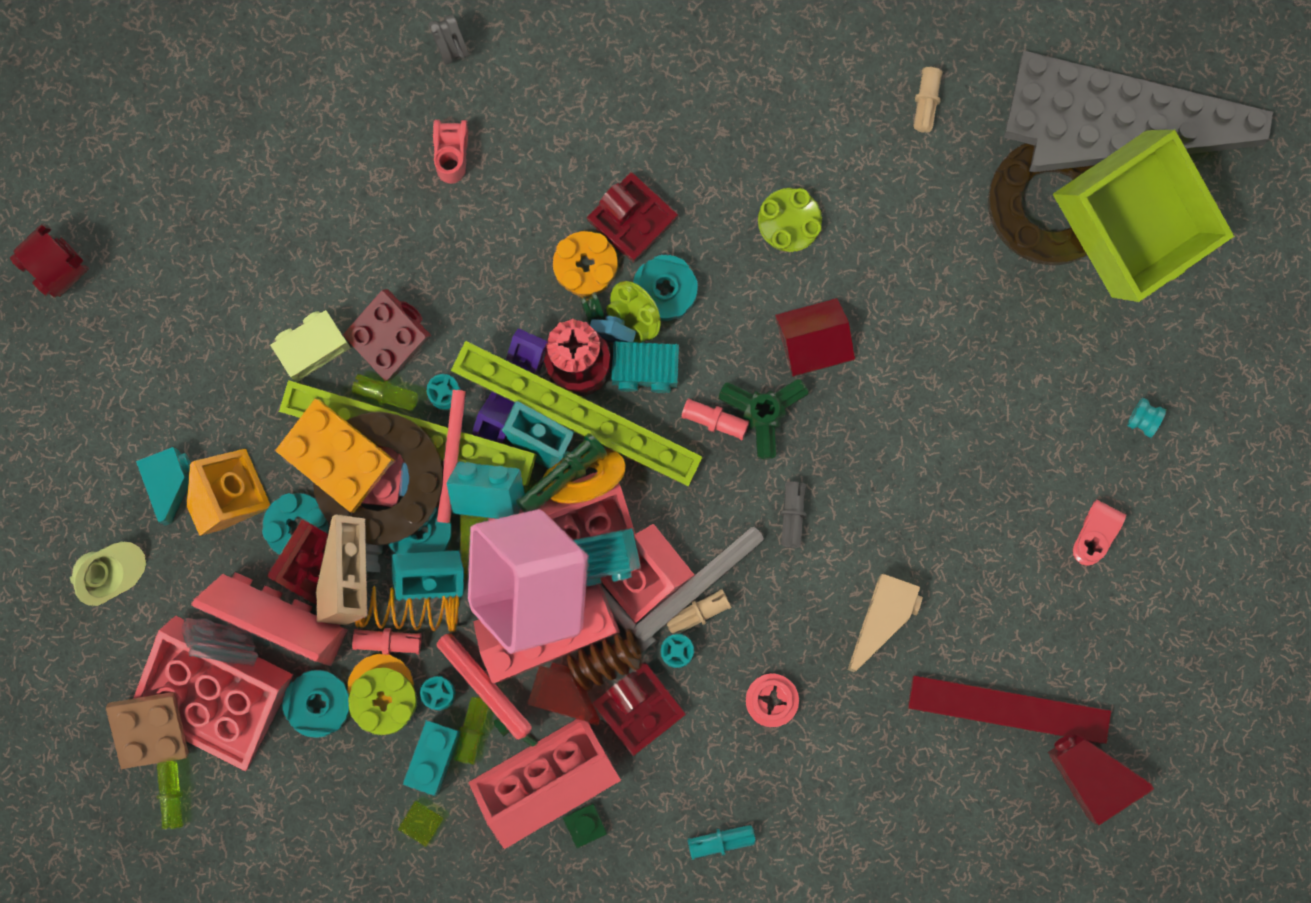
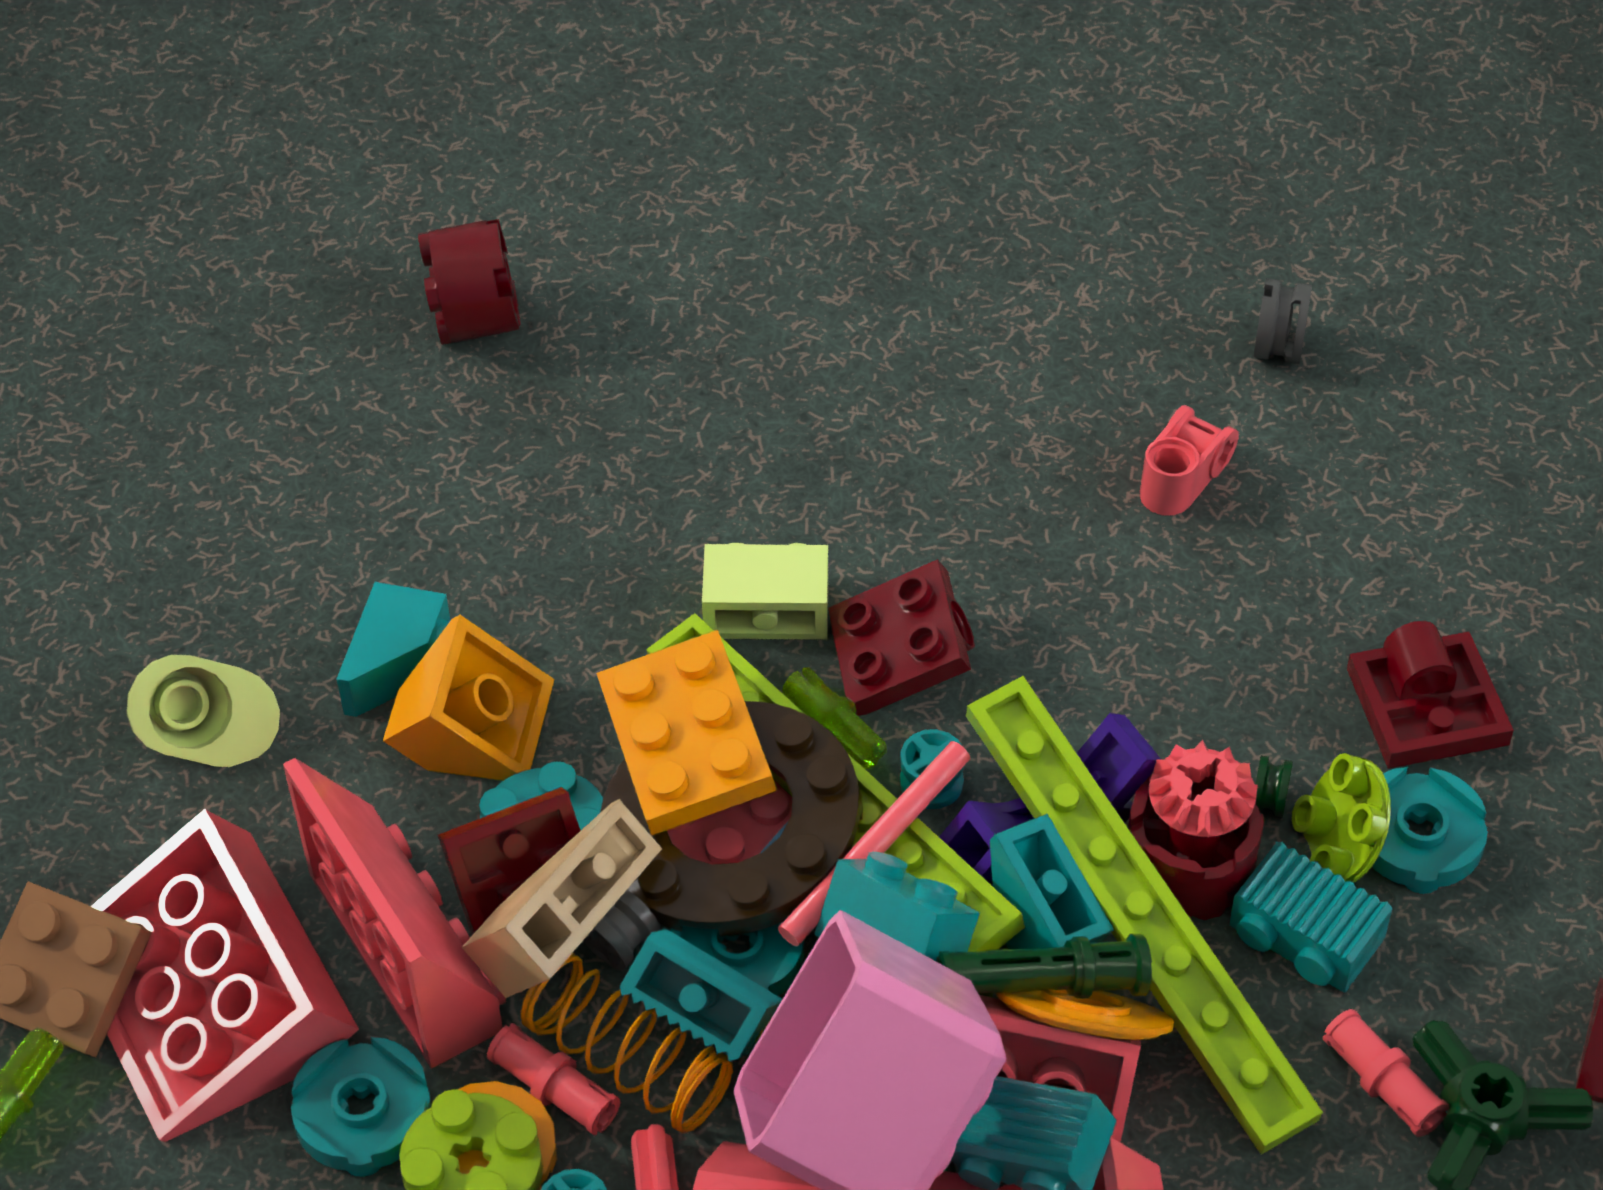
camera: 35 degrees right, 30 degrees down
(219, 641) = (268, 875): clear light blue plate -> none
(595, 248) = (1309, 694): light orange plate -> none
(613, 329) = (1289, 822): dark azure plate -> none

